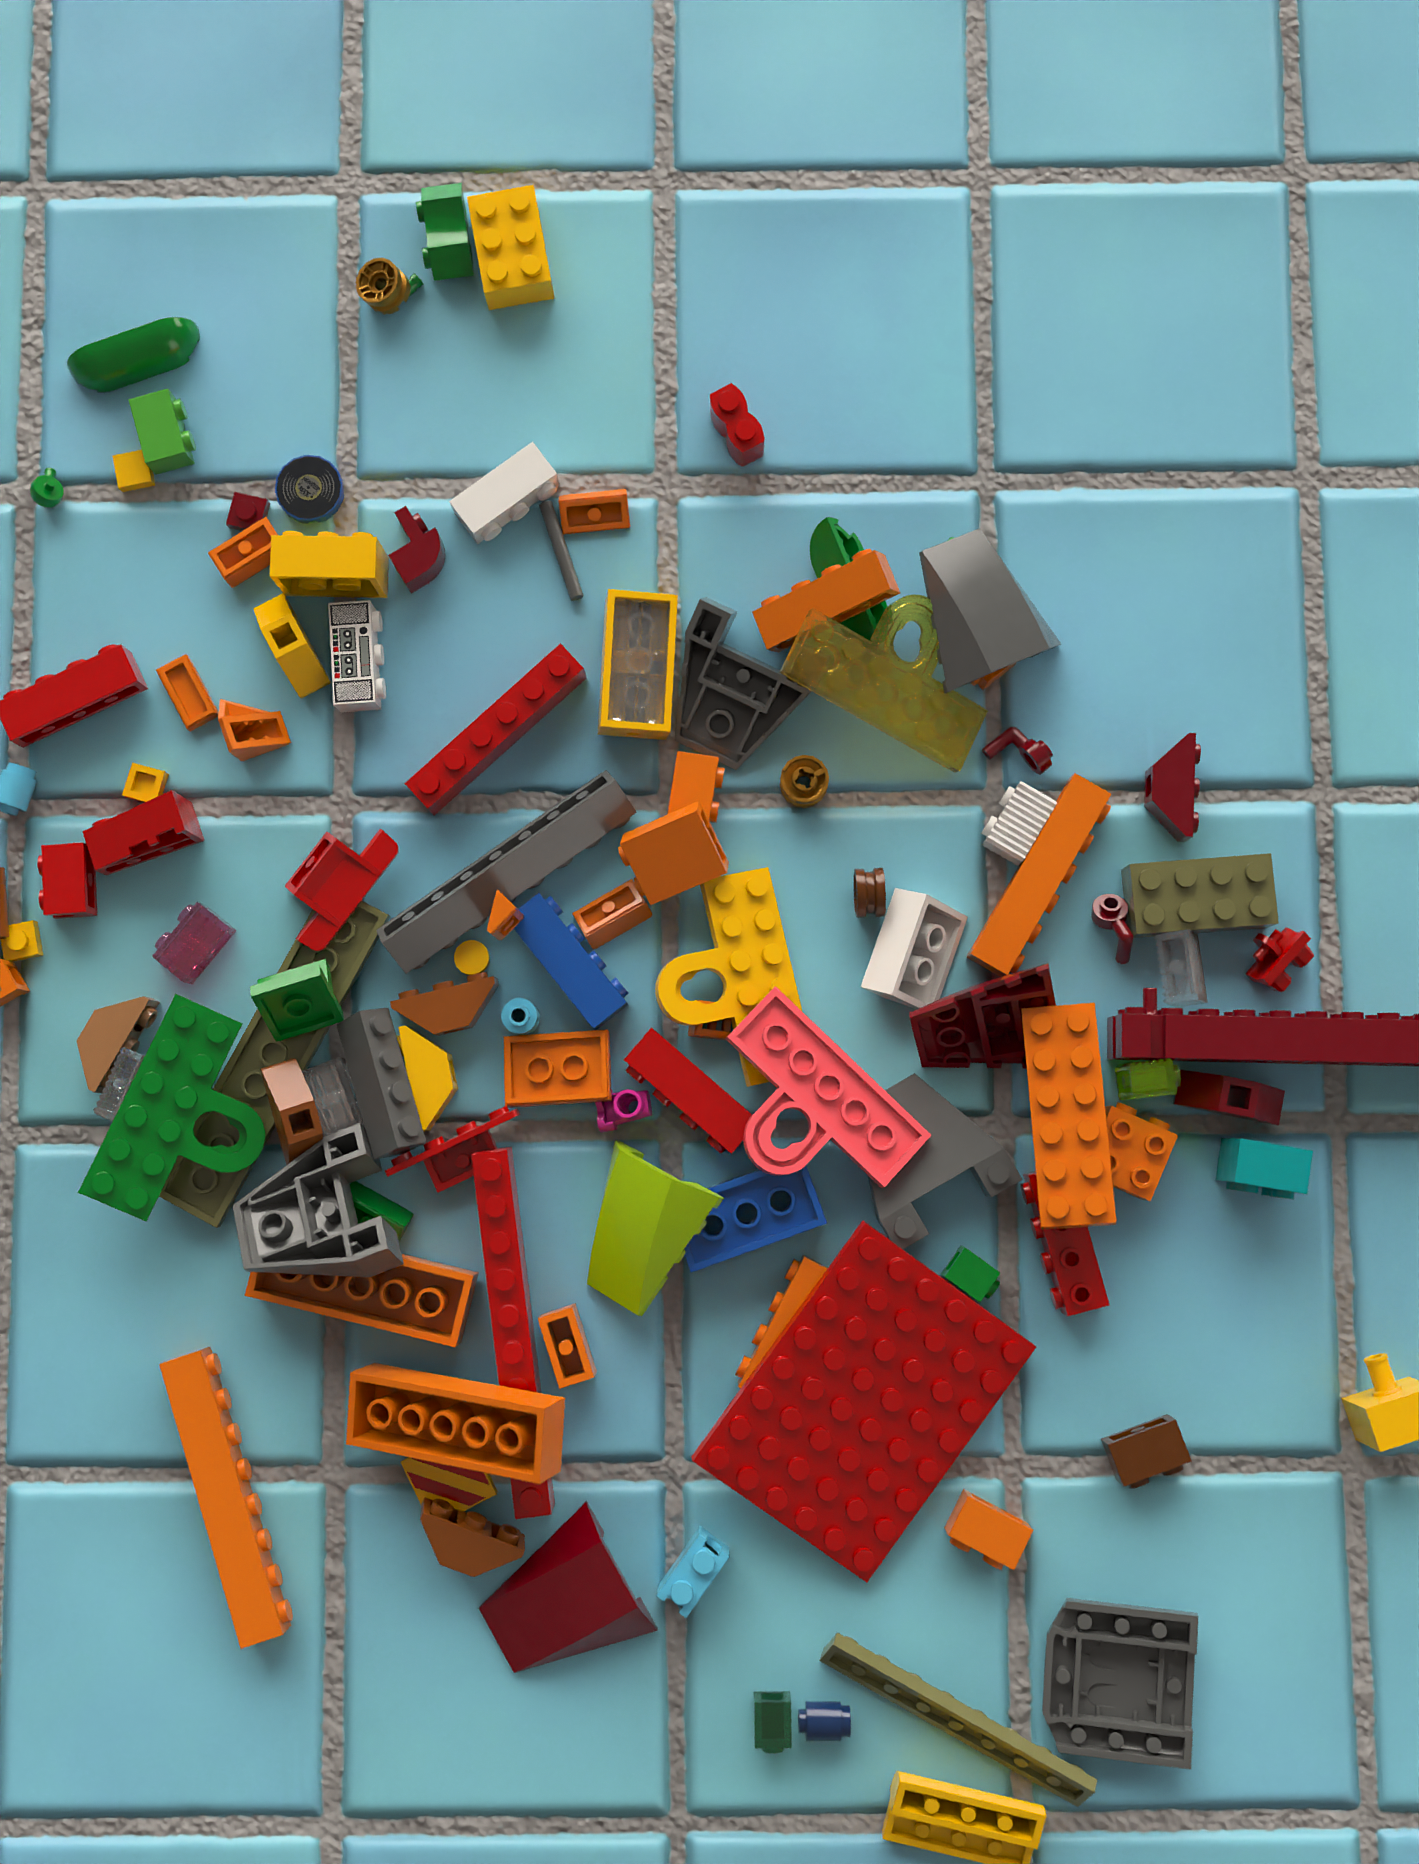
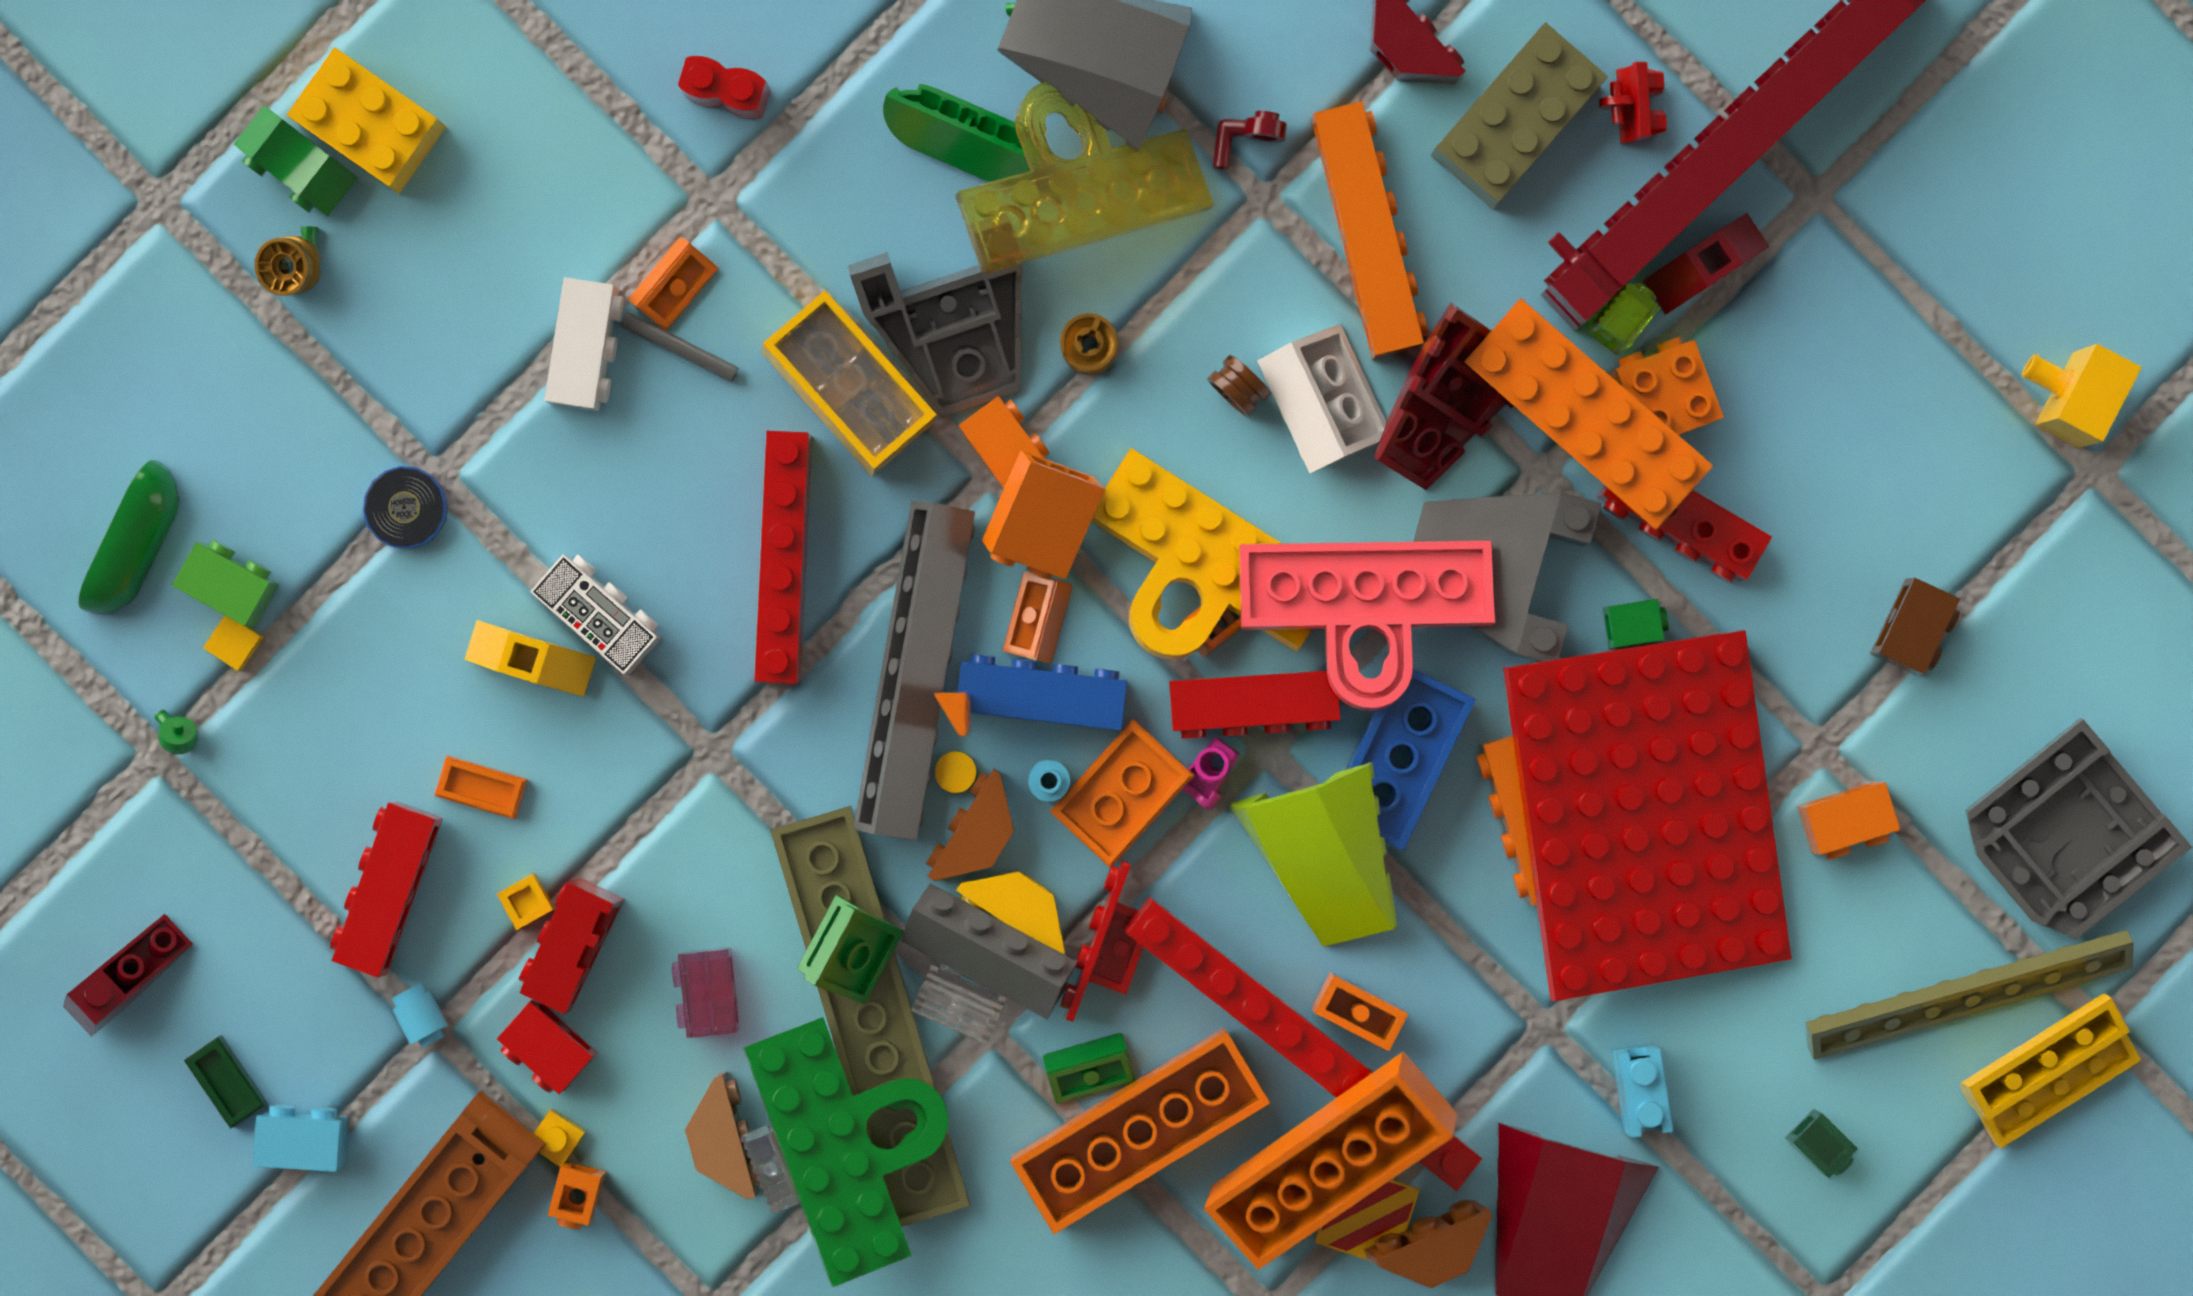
camera: 55 degrees left, 5 degrees up
(244, 553) = (410, 615): orange slope -> none
(246, 511) = (373, 581): dark red plate -> none
(251, 730) = (569, 764): orange slope -> none
(292, 1108) = (940, 1047): dark orange slope -> none
(307, 1215) = (1041, 1123): dark grey wedge -> none
(329, 565) = (497, 557): yellow brick -> none
(335, 883) = (778, 822): red plate -> none
(421, 558) = (567, 473): dark red brick -> none
(824, 1721) = (1864, 1102): dark blue brick -> none
(837, 594) = (961, 162): orange brick -> none
(1018, 823) = (1306, 201): white brick -> none
(1110, 913) = (1467, 206): dark red plate -> none
(1181, 968) = (1563, 193): clear brick -> none
(1264, 1165) = (1799, 289): teal brick -> none

